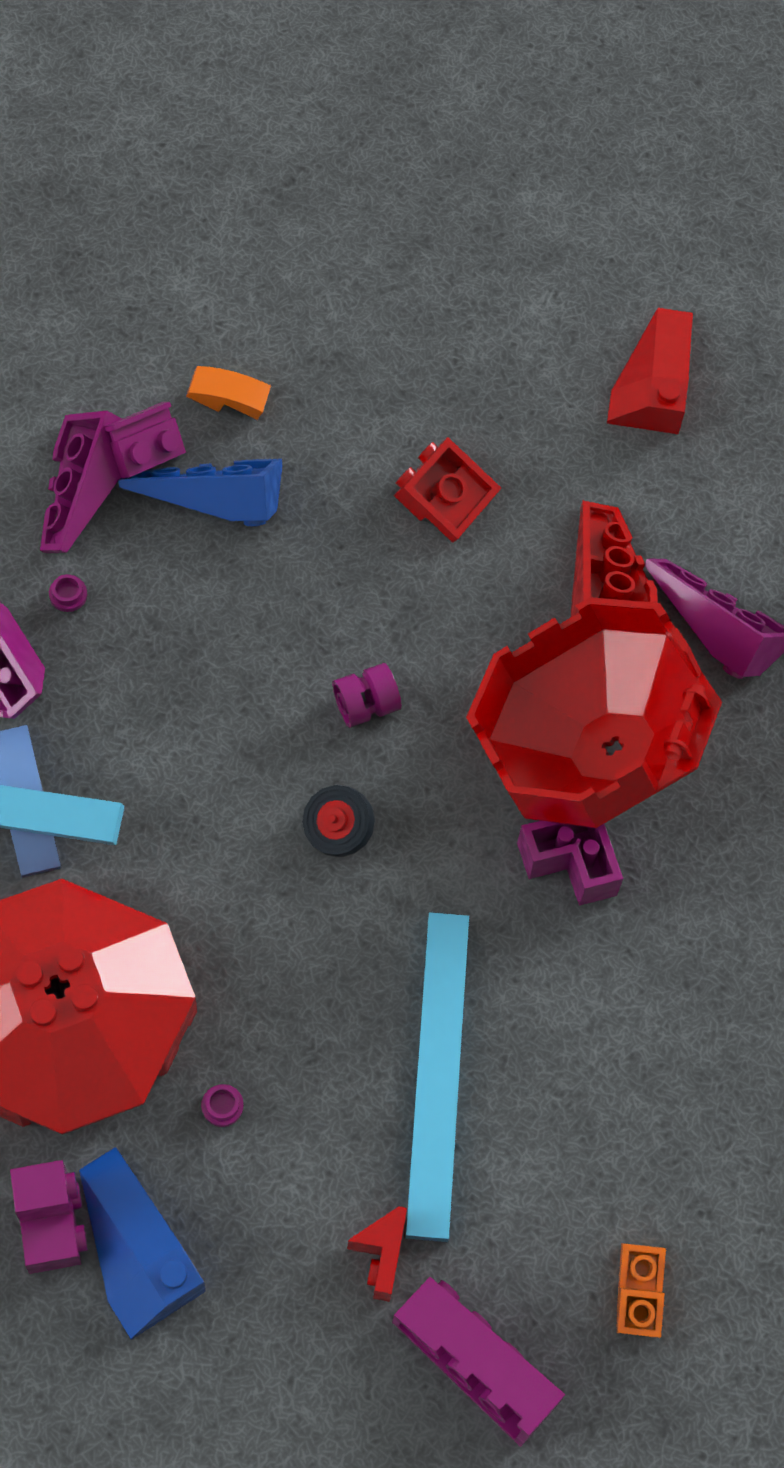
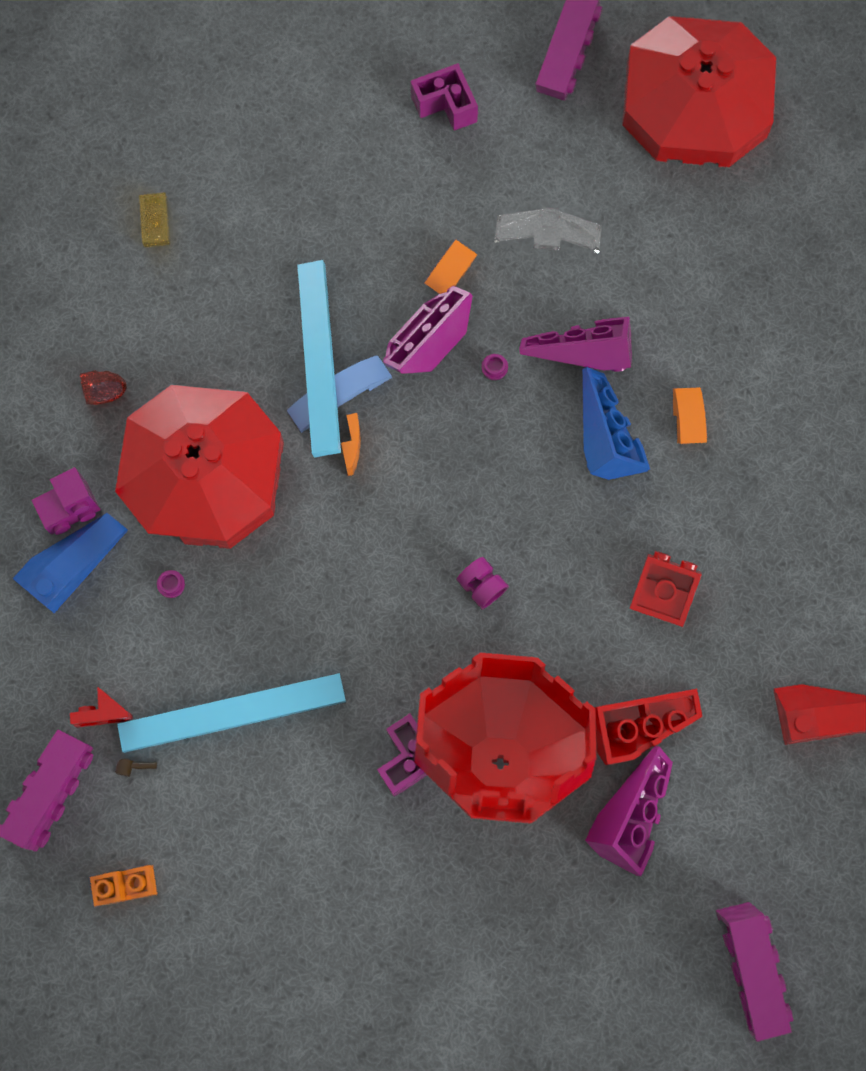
camera: 80 degrees right, 10 degrees up
(135, 808) = (351, 449): none -> orange slope
(145, 439) = (623, 372): magenta plate -> none
(338, 820) = (384, 593): black wheel -> none
(472, 1242) = (125, 766): none -> dark brown hand

